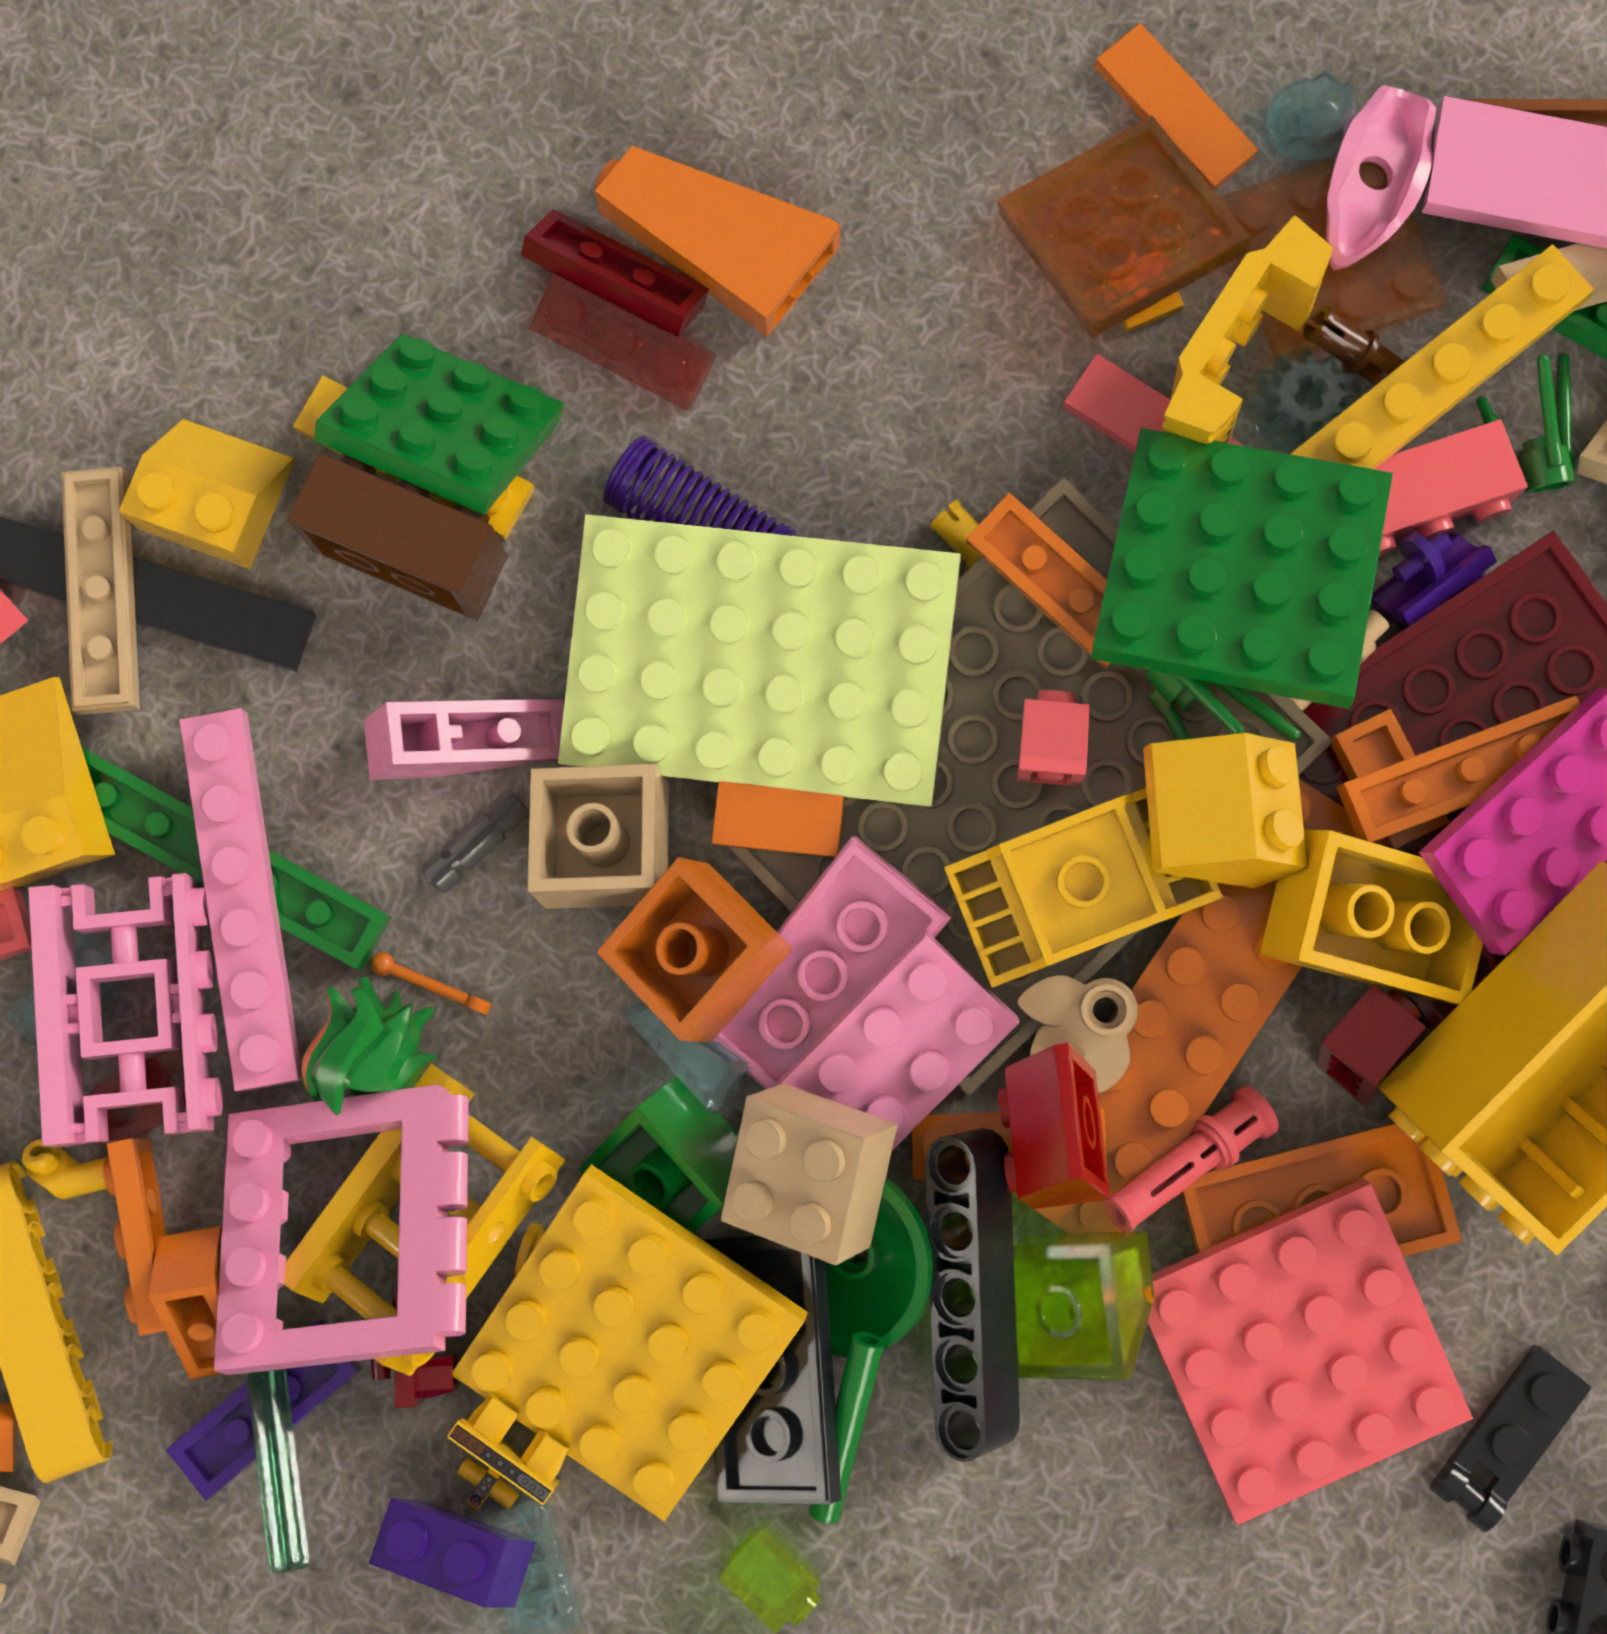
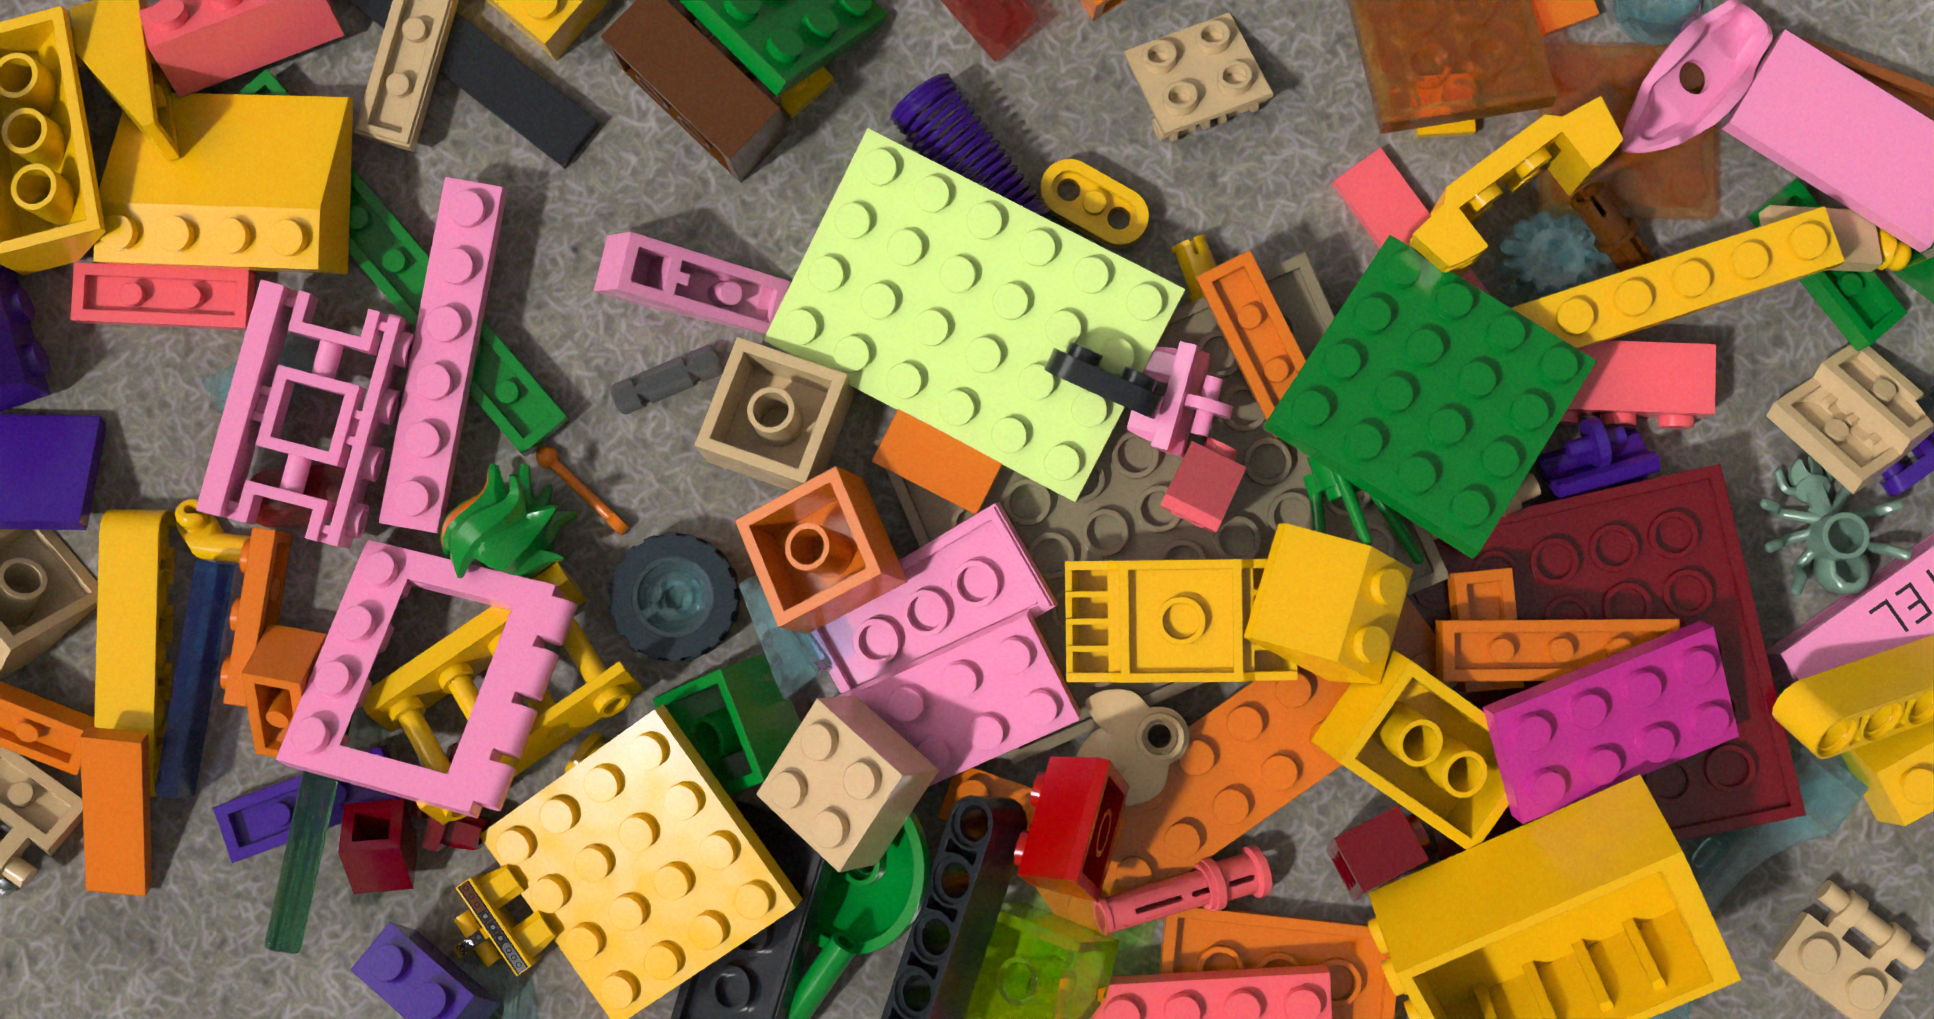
camera: 10 degrees right, 5 degrees up
(67, 1491) = (116, 811): none -> orange tile
(101, 1324) = (194, 679): none -> clear blue tile
(351, 1425) = (378, 846): none -> dark red brick
(526, 1056) = (640, 592): none -> black wheel
(837, 506) = (1096, 200): none -> yellow plate
(892, 352) = (1198, 77): none -> tan hinge
(945, 670) = (1082, 369): none -> black plate
(992, 639) = (1188, 400): none -> bright pink hips
(1547, 459) = (1744, 394): green plant -> none

